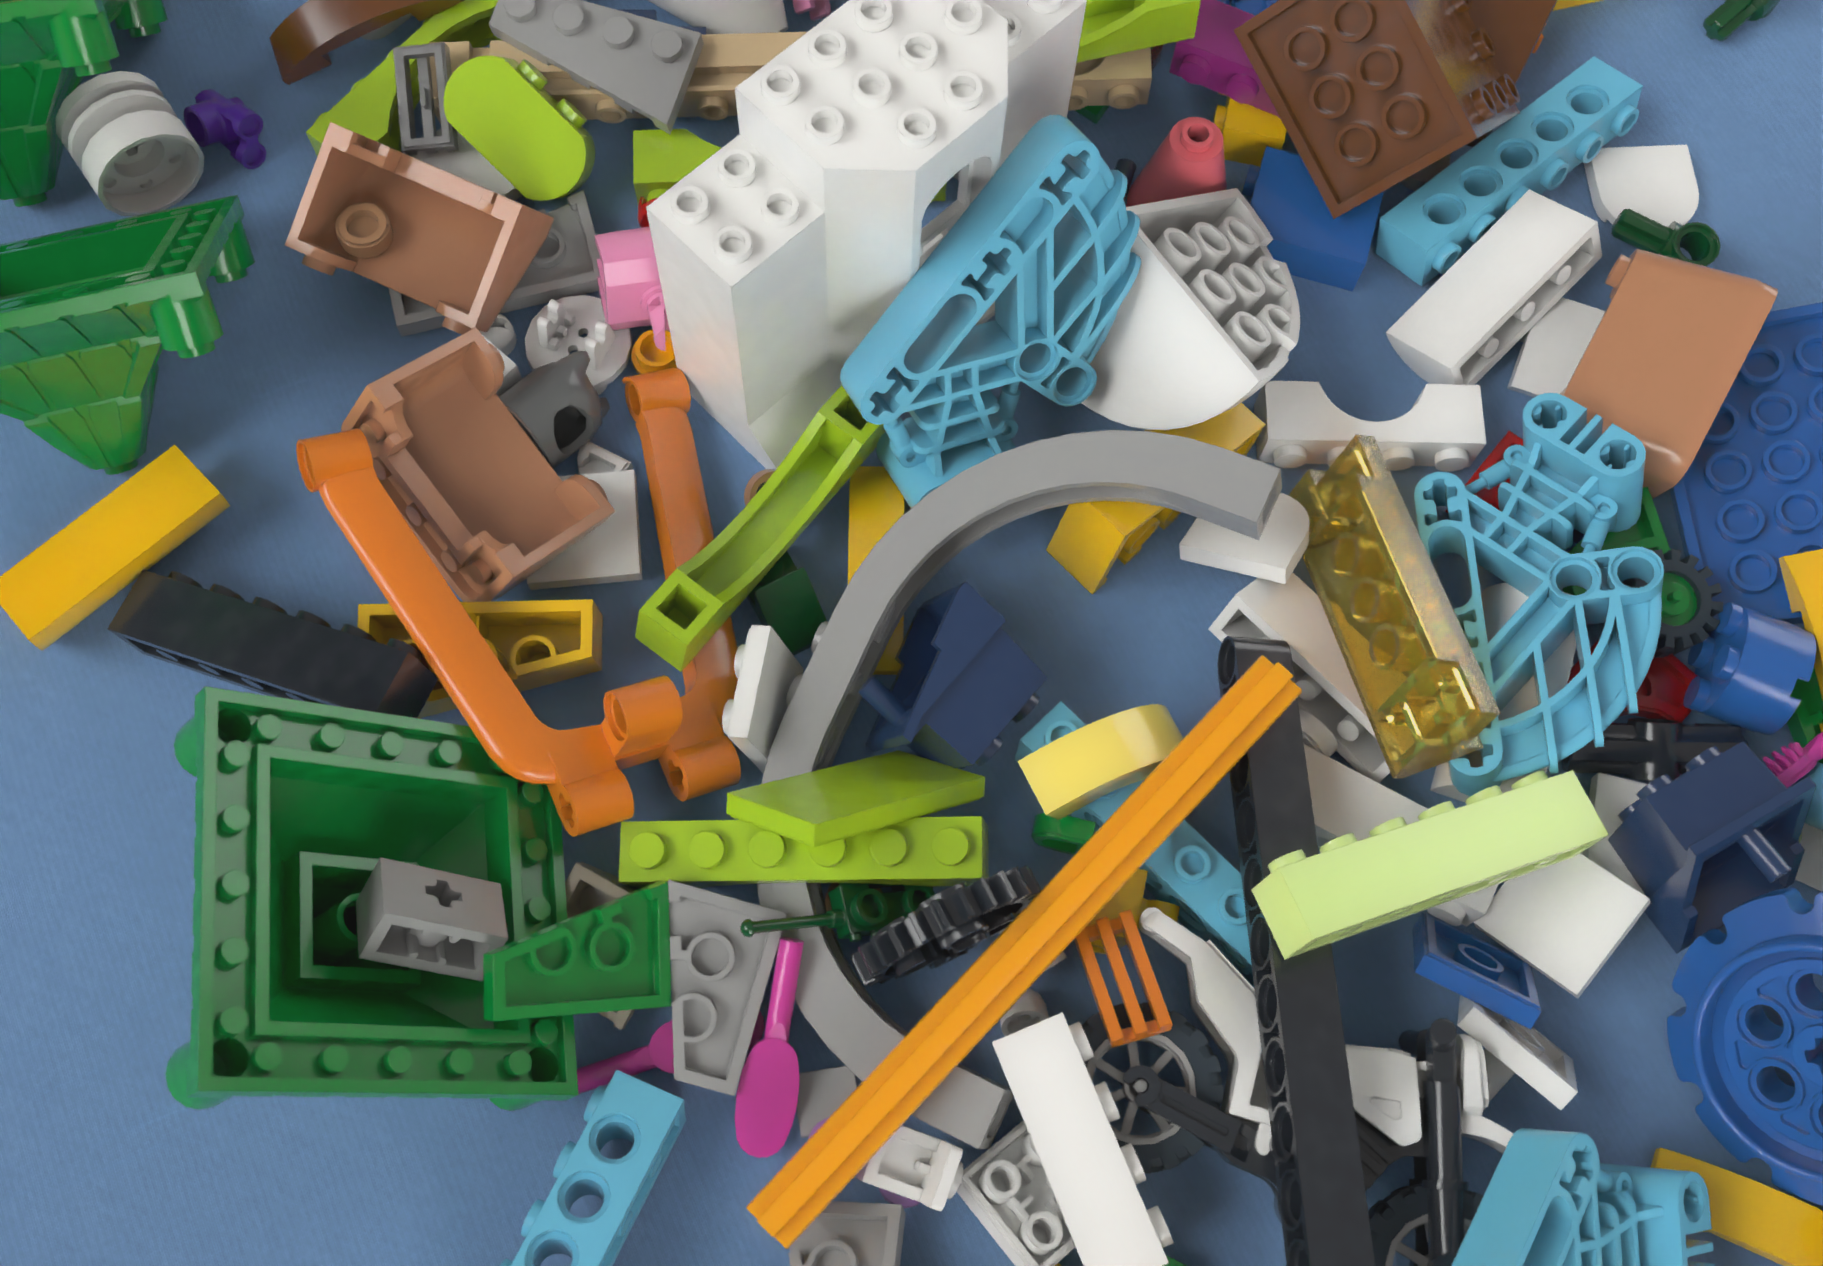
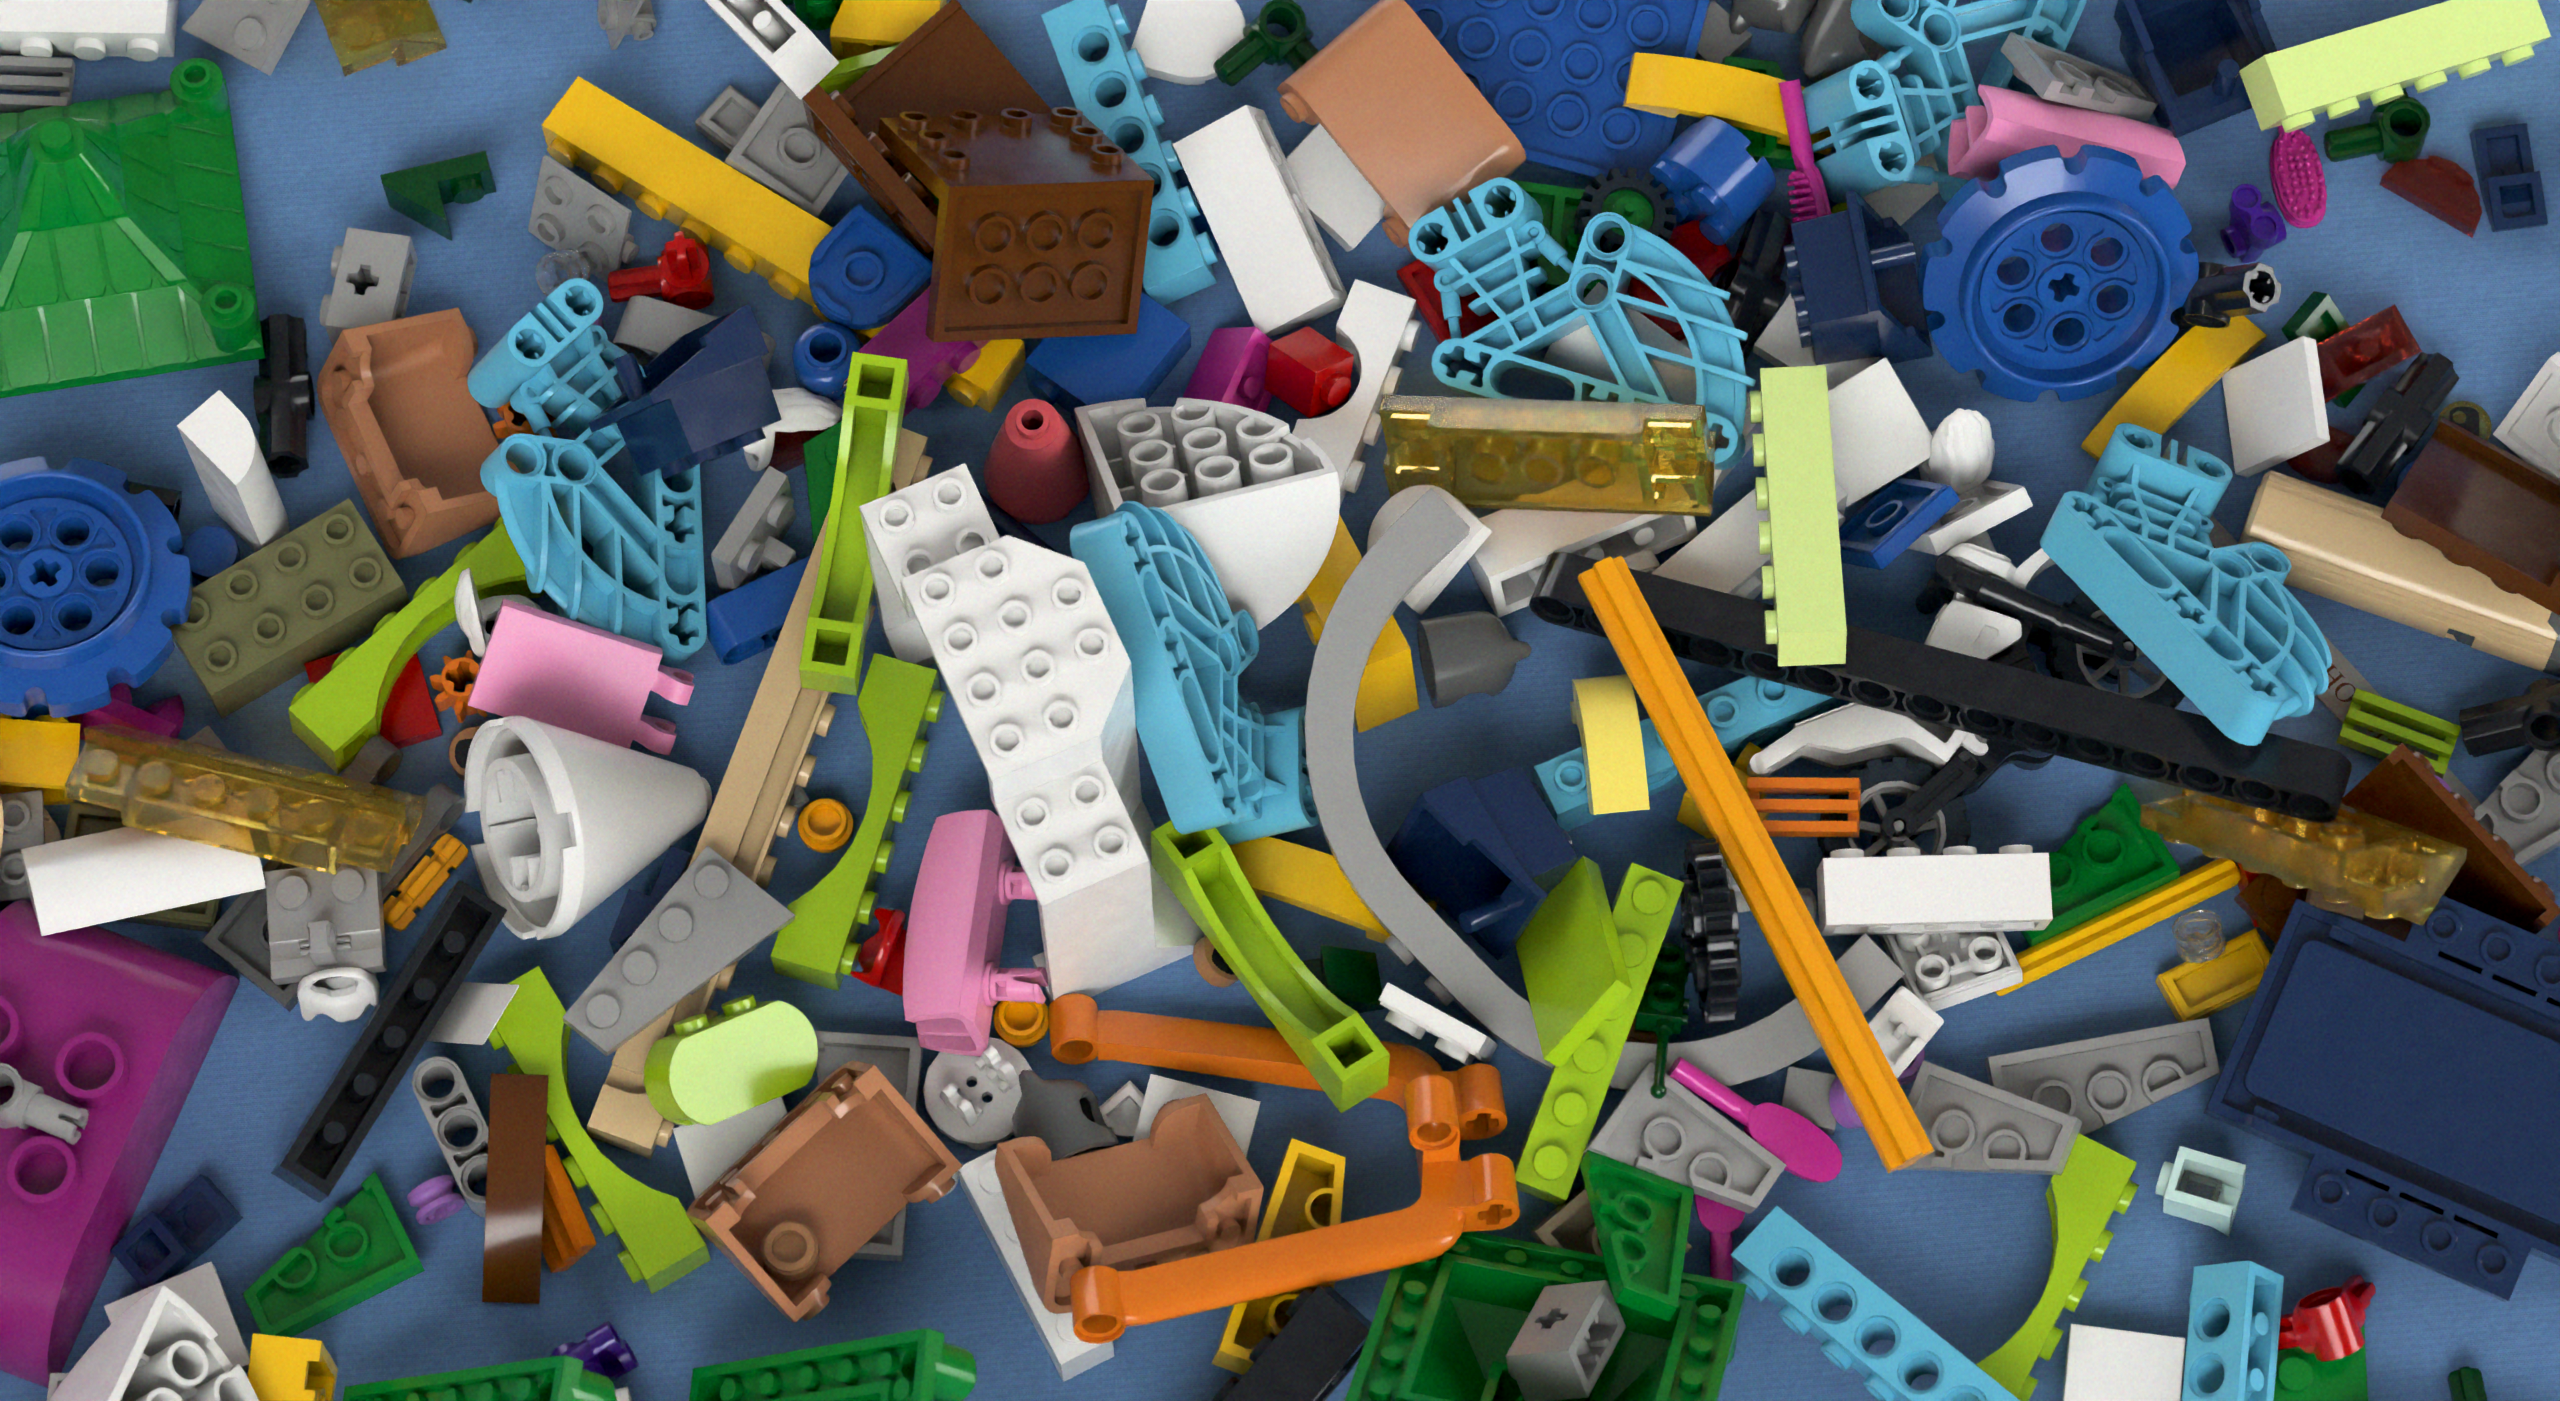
camera: 65 degrees left, 0 degrees up
(362, 58) = (565, 1227): none -> orange tile
(430, 142) = (612, 1133): flat silver tile -> none
(1062, 835) = (1644, 822): green tile -> none
(1153, 607) = (1467, 655): none -> dark grey piece
(1341, 334) = (1233, 369): none -> dark pink panel
(1371, 378) = (1308, 372): none -> red brick
(1587, 1016) = (1960, 451): none -> white piece

